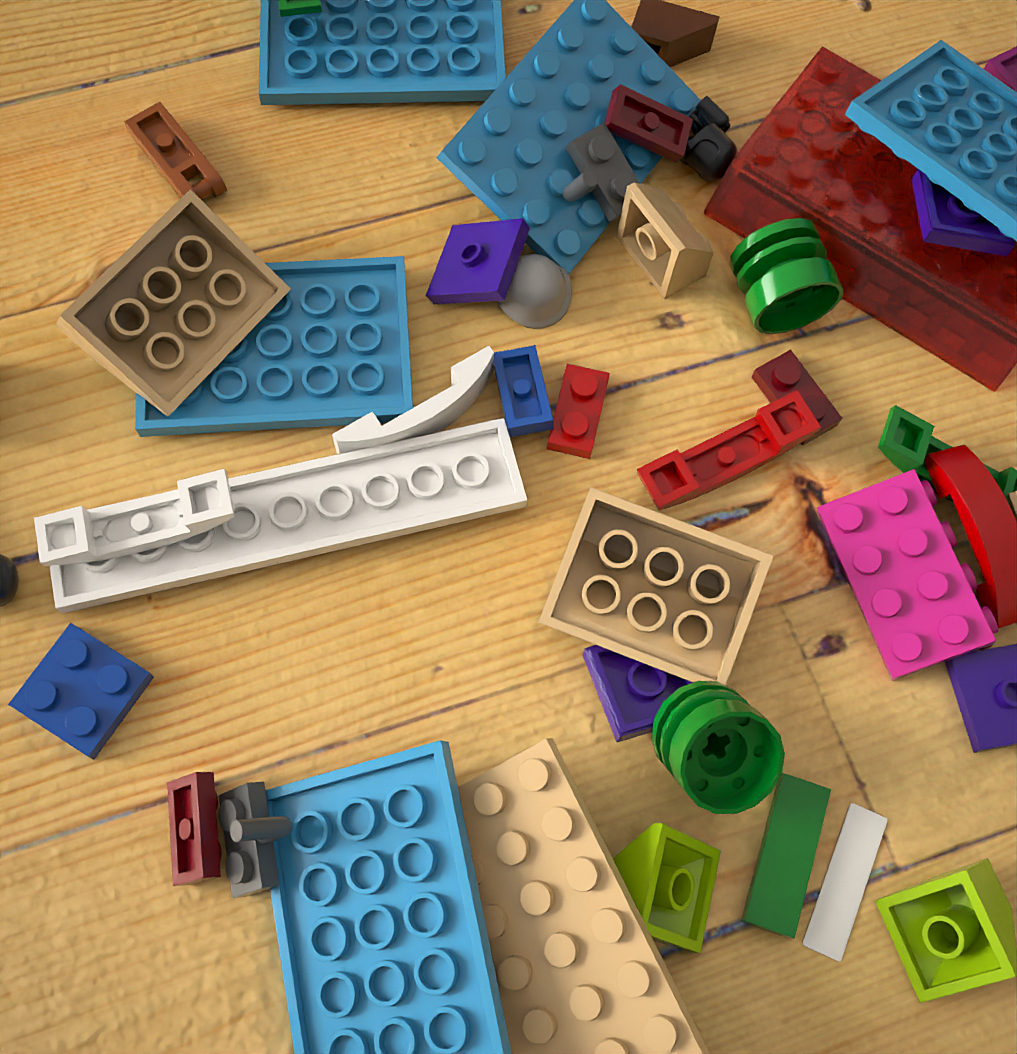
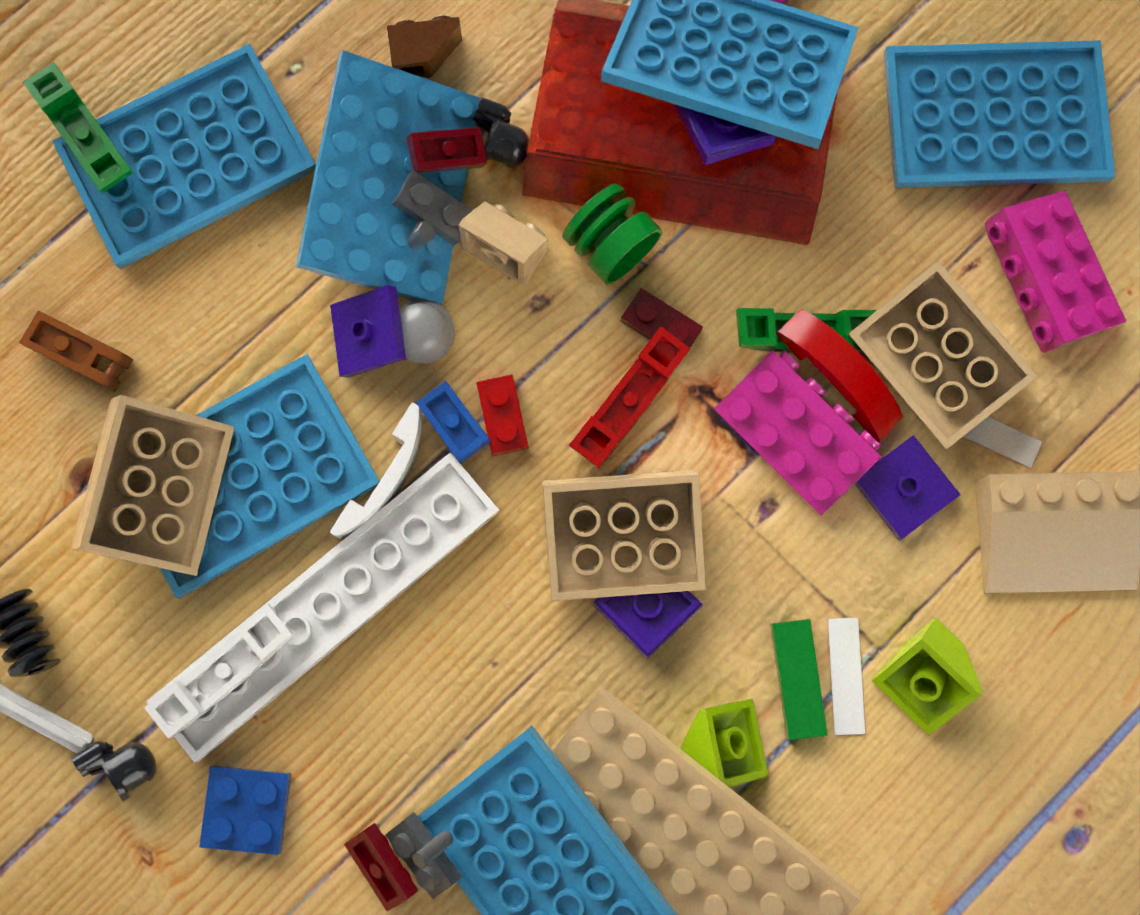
camera: 25 degrees left, 10 degrees up
(718, 747) = (718, 634): green wheel -> none

